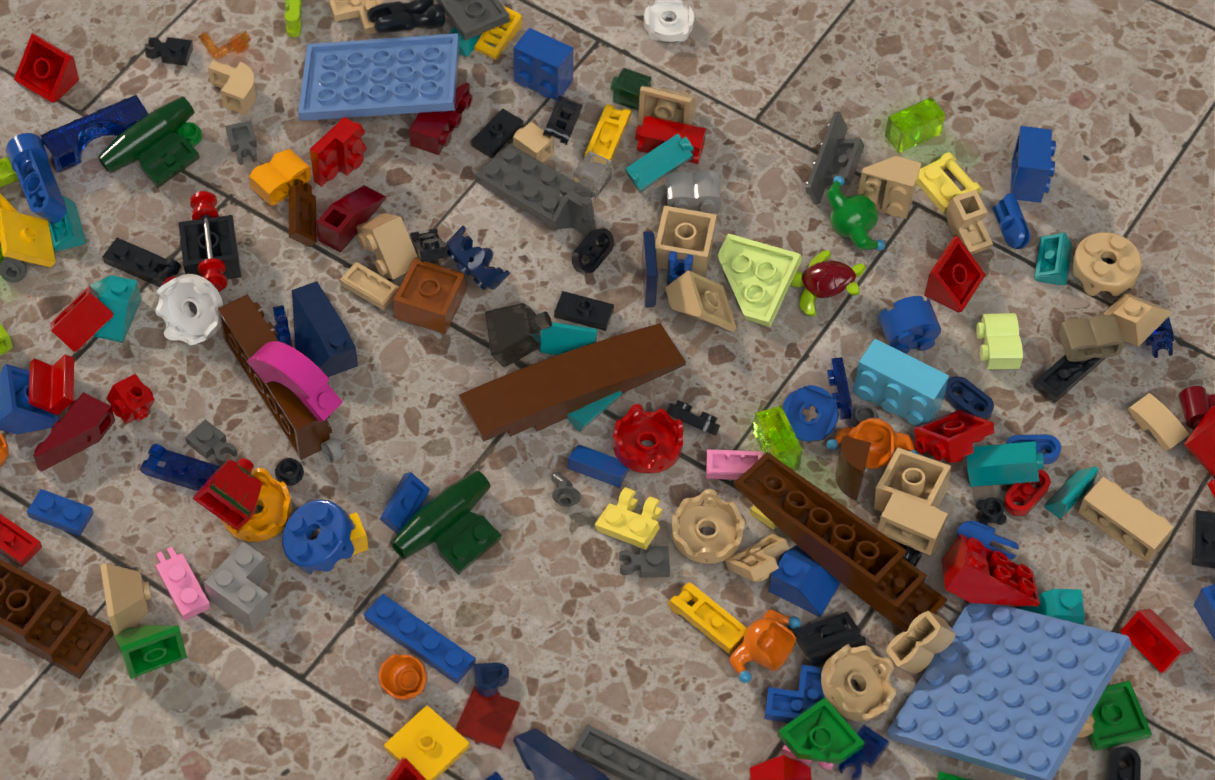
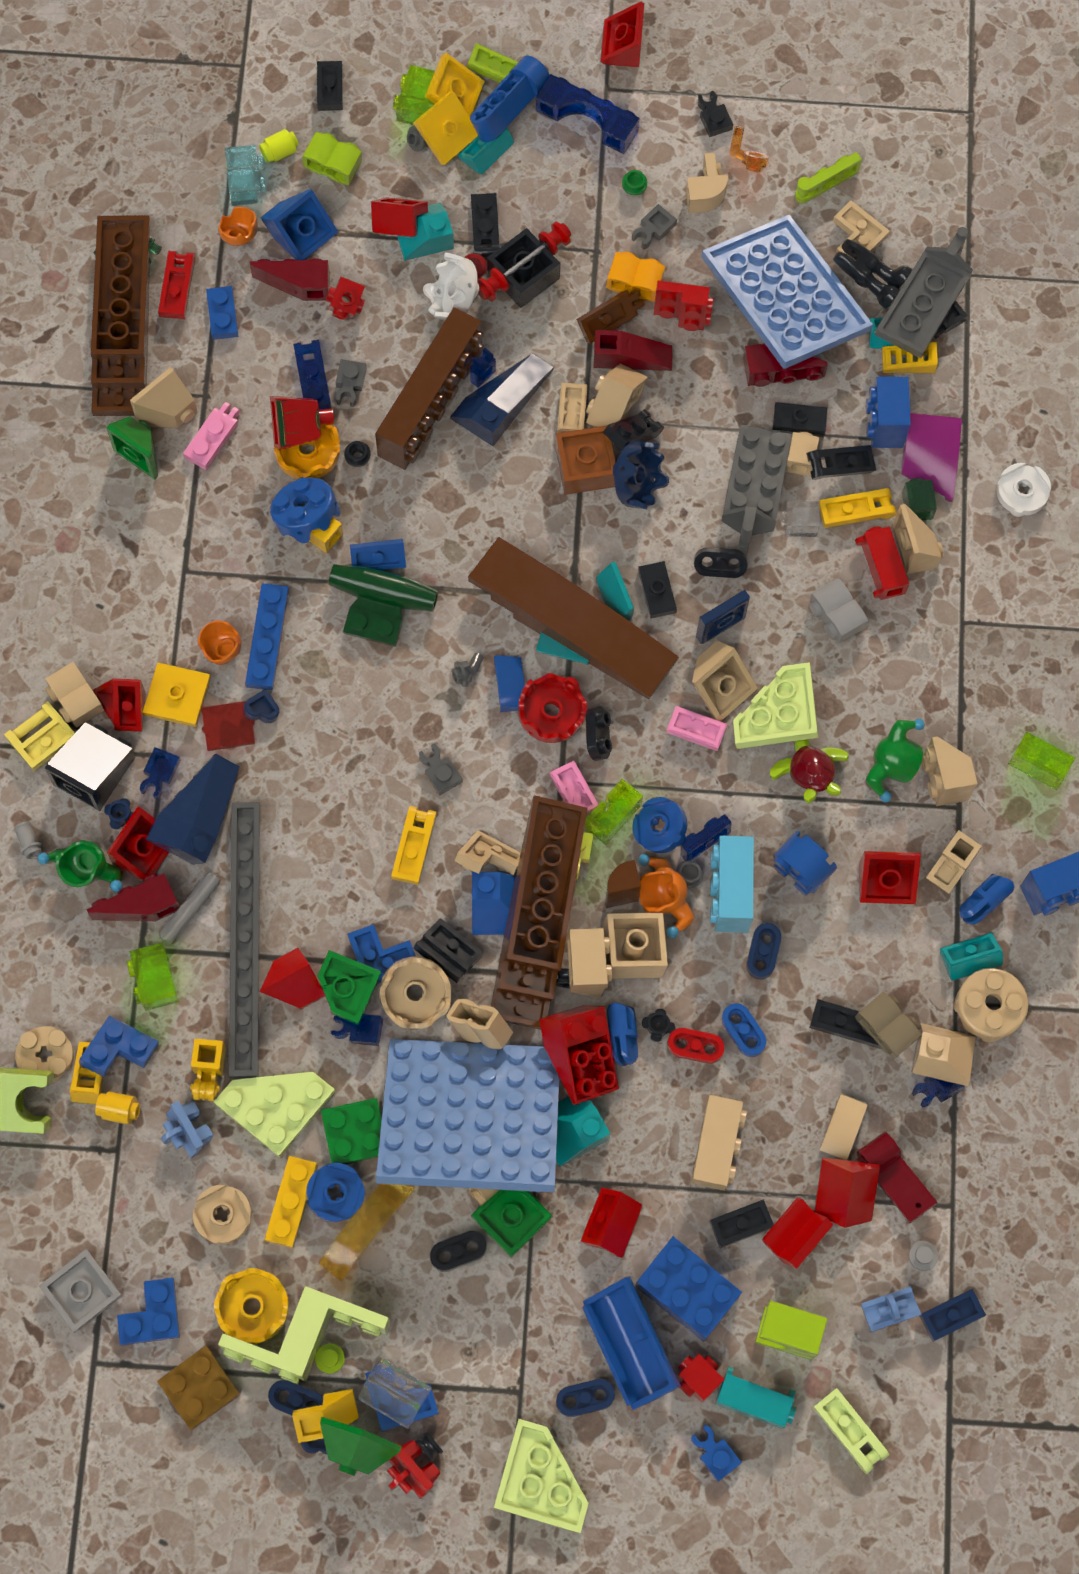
camera: 60 degrees right, 15 degrees up
(52, 386) = (324, 232): red panel -> none
(154, 143) = (602, 162): dark green plate -> none
(236, 586) = (230, 473): light grey brick -> none
(298, 373) = (411, 403): dark pink arch -> none
(333, 450) = (396, 472): light grey hinge -> none
(515, 332) = (590, 545): clear smoke torso -> none
(598, 57) = (933, 451): none -> magenta slope
(629, 526) = (461, 736): light yellow plate -> none
(659, 162) = (843, 565): teal brick -> none
(677, 267) = (741, 640): blue hinge -> none
(685, 233) = (776, 630): tan brick -> none
(711, 512) = (499, 782): tan plate -> none
(733, 345) = (696, 728): none -> bright pink plate
(765, 643) = (413, 901): orange piece -> none
(834, 159) = (957, 710): dark grey bracket -> none
(939, 186) = (989, 818): light yellow plate -> none
(952, 435) = (707, 951): red plate -> none
(1000, 341) = (843, 949): yellowish green brick -> none
(1004, 464) = (706, 1011): teal brick -> none
(1071, 491) = (721, 1083): teal slope -> none

